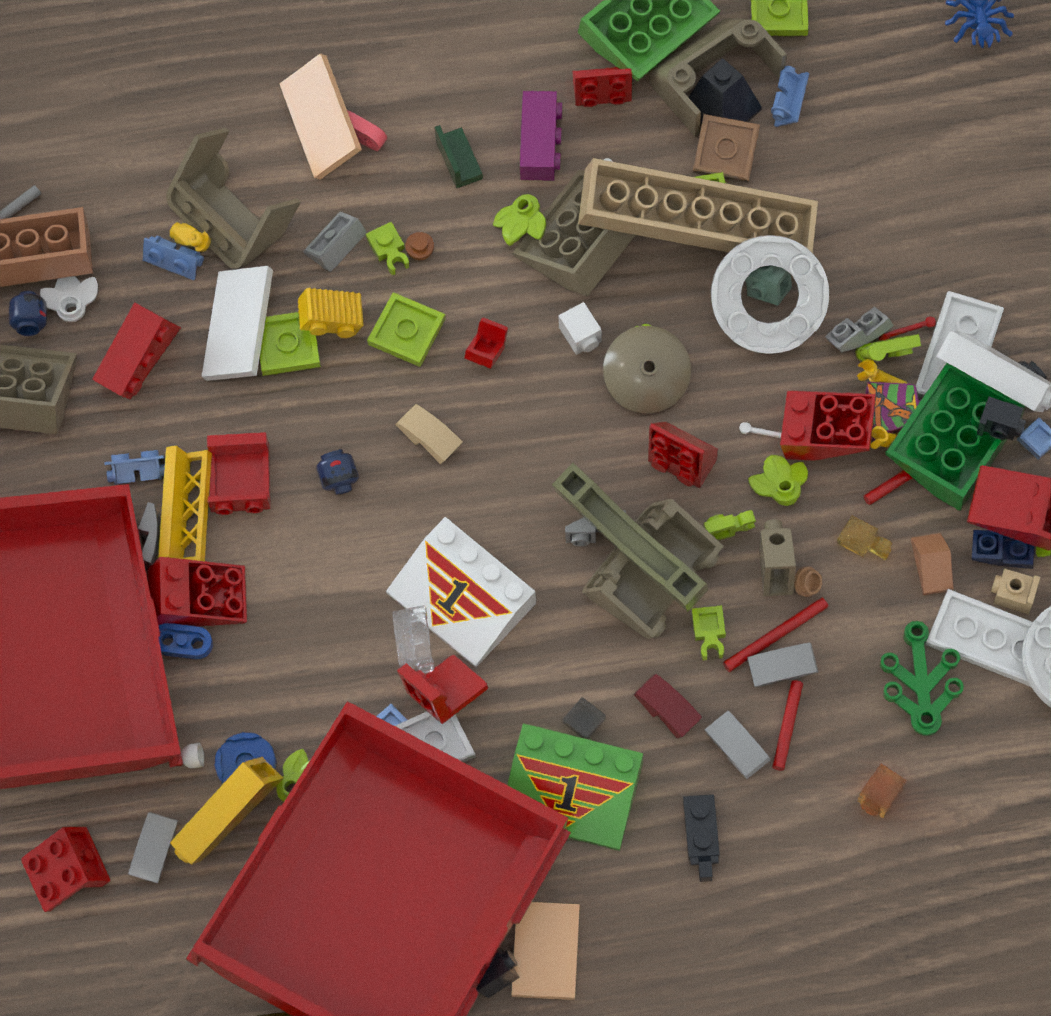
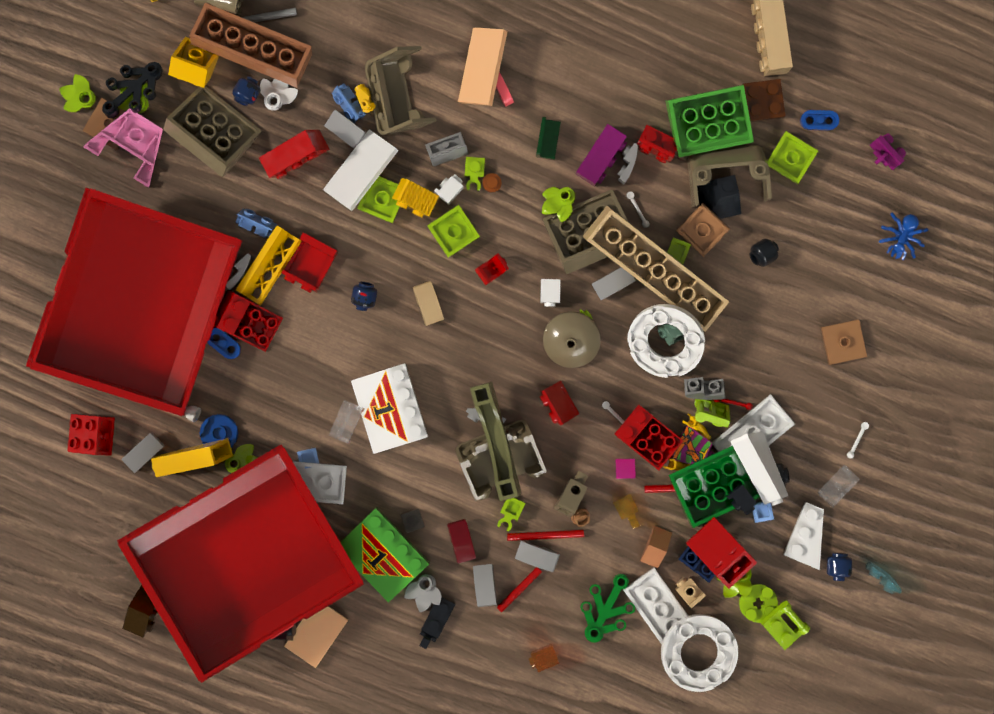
camera: 25 degrees right, 20 degrees up
(186, 288) = (344, 129): none -> light grey slope
(370, 281) = (449, 189): none -> white brick
(443, 689) = (348, 460): red bracket -> none
(579, 124) = (630, 157): none -> light grey slope
(654, 271) = (612, 283): none -> light grey slope
(663, 809) = (423, 595): none -> light grey plate
(726, 526) = (553, 456): lime plate -> none
(780, 476) = (606, 446): lime plate -> none
(789, 101) = (761, 220): medium blue hinge -> none
(821, 131) = (764, 252): none -> black head
(824, 489) = (625, 468): none -> dark pink slope
(995, 179) = (843, 342): none -> medium nougat plate

